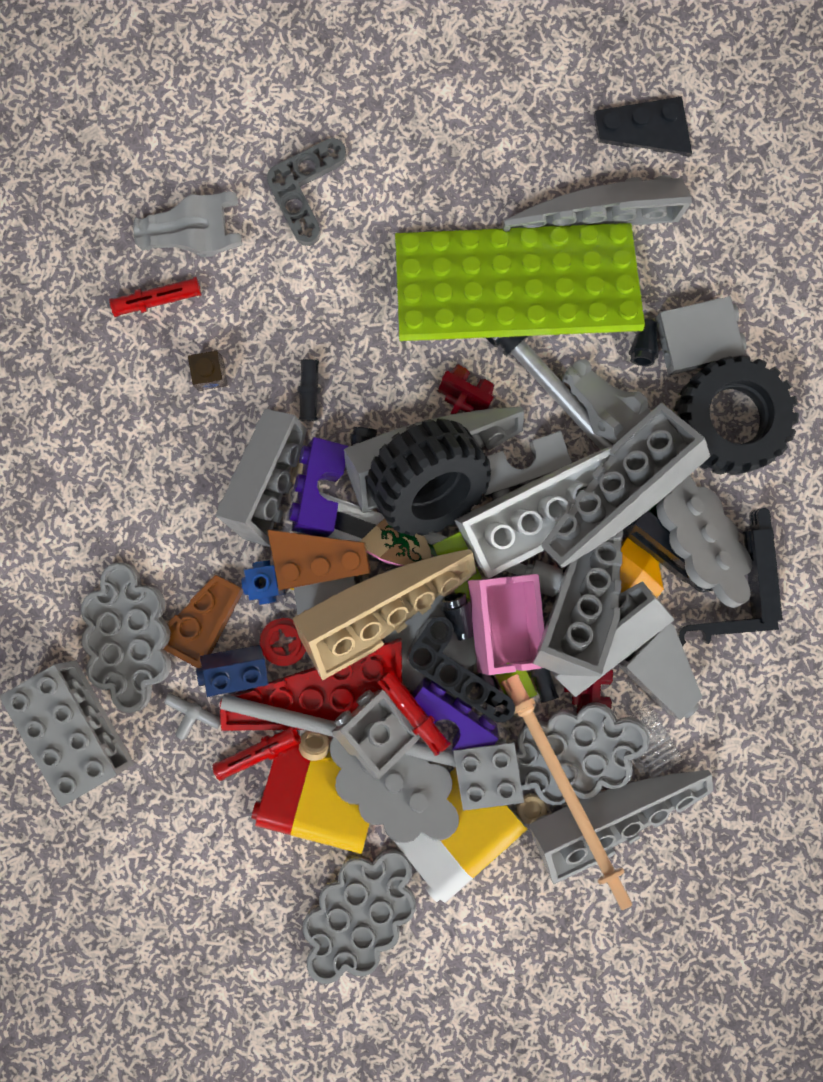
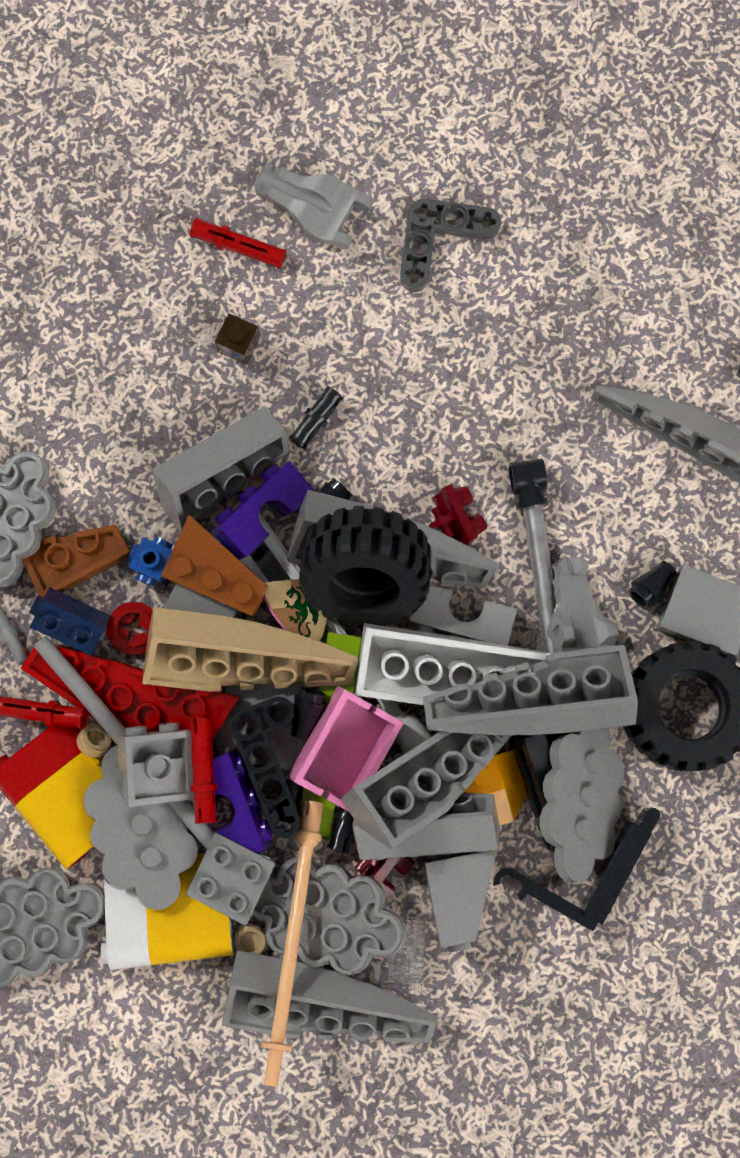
camera: 30 degrees right, 5 degrees down
(517, 282) = (572, 449): lime plate -> none

